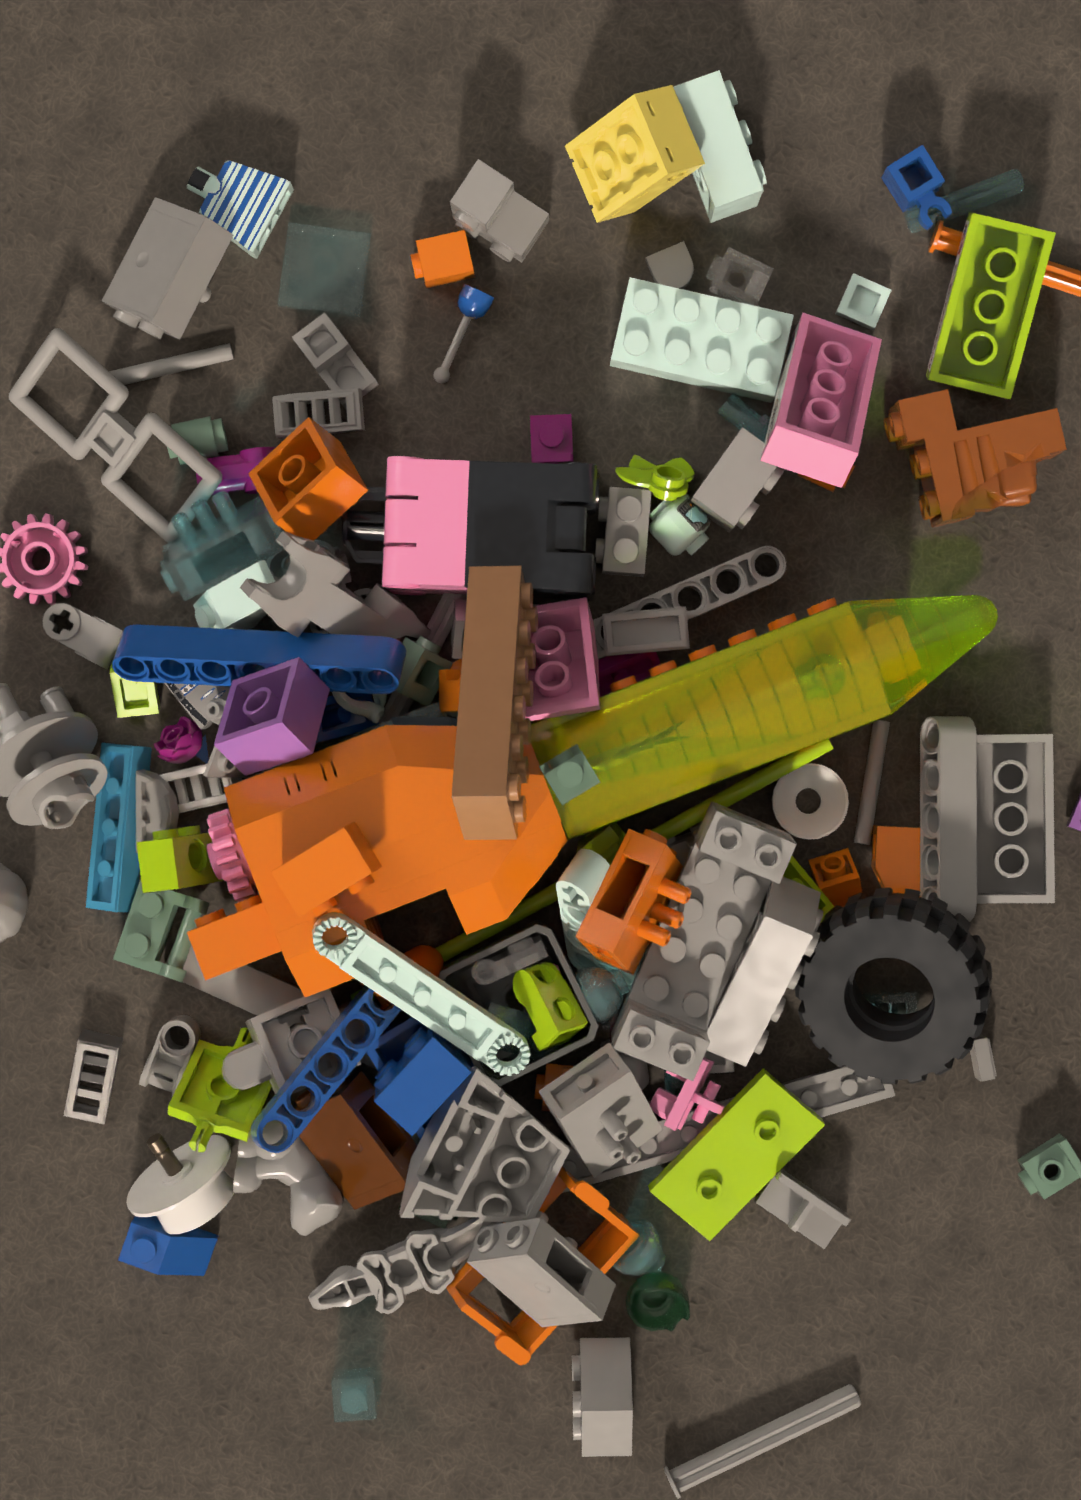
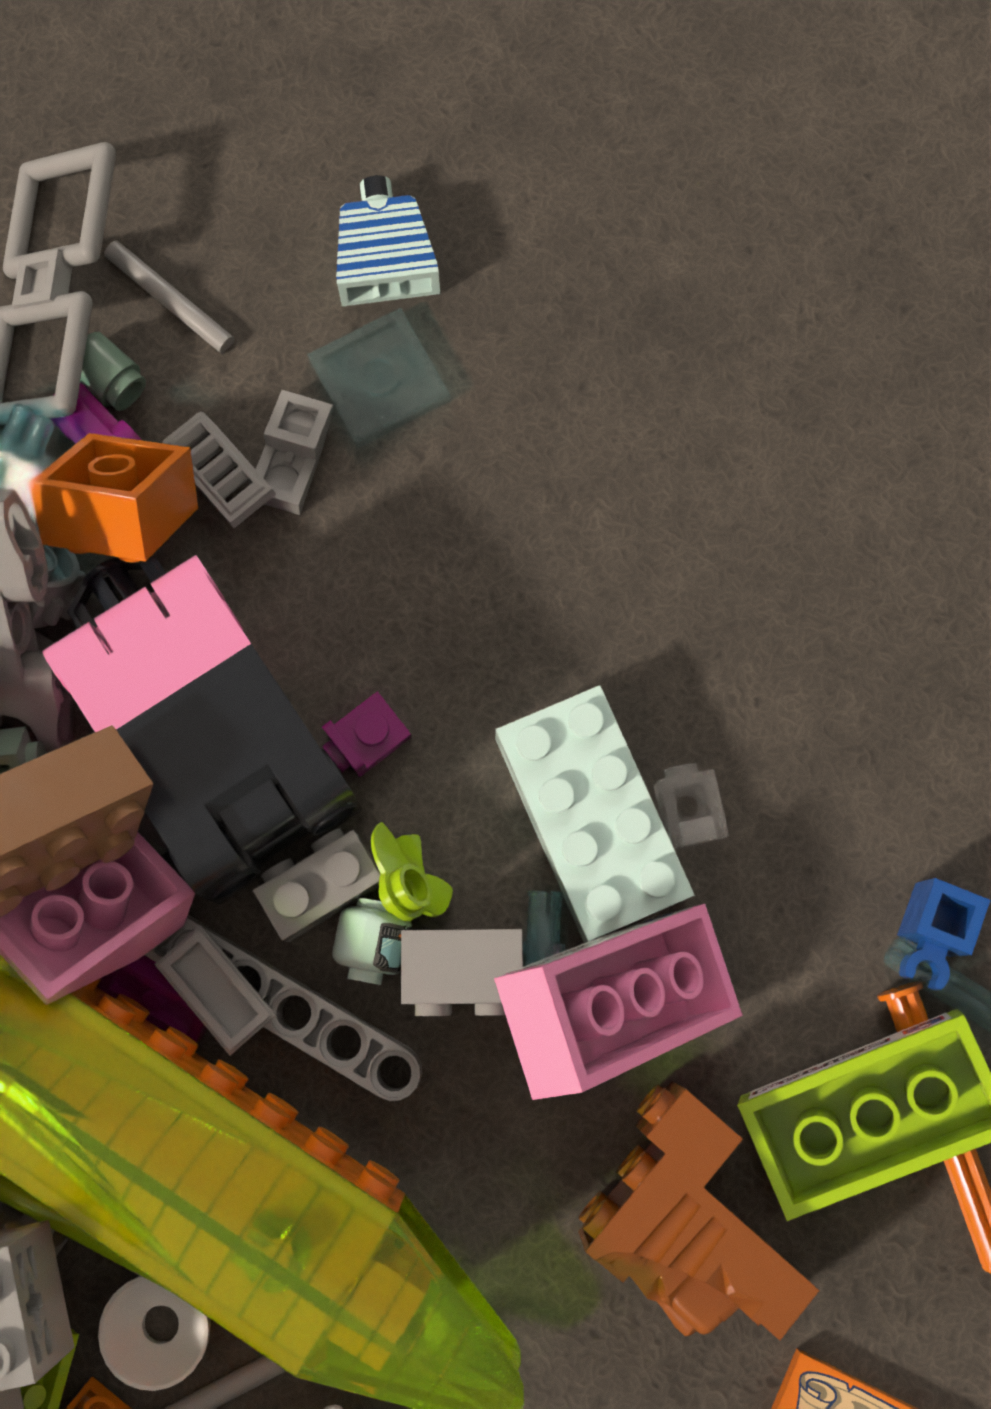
camera: 55 degrees right, 10 degrees down
(167, 269) = (254, 218): light grey piece -> none
(443, 259) = (476, 483): orange brick -> none
(473, 305) = (451, 548): hinge -> none
(493, 210) = (566, 487): light grey brick -> none
(634, 153) = (738, 591): light yellow piece -> none
(671, 266) = (649, 727): light grey tile -> none
(729, 177) = (814, 676): light aqua brick -> none
(863, 301) = (768, 963): light aqua plate -> none

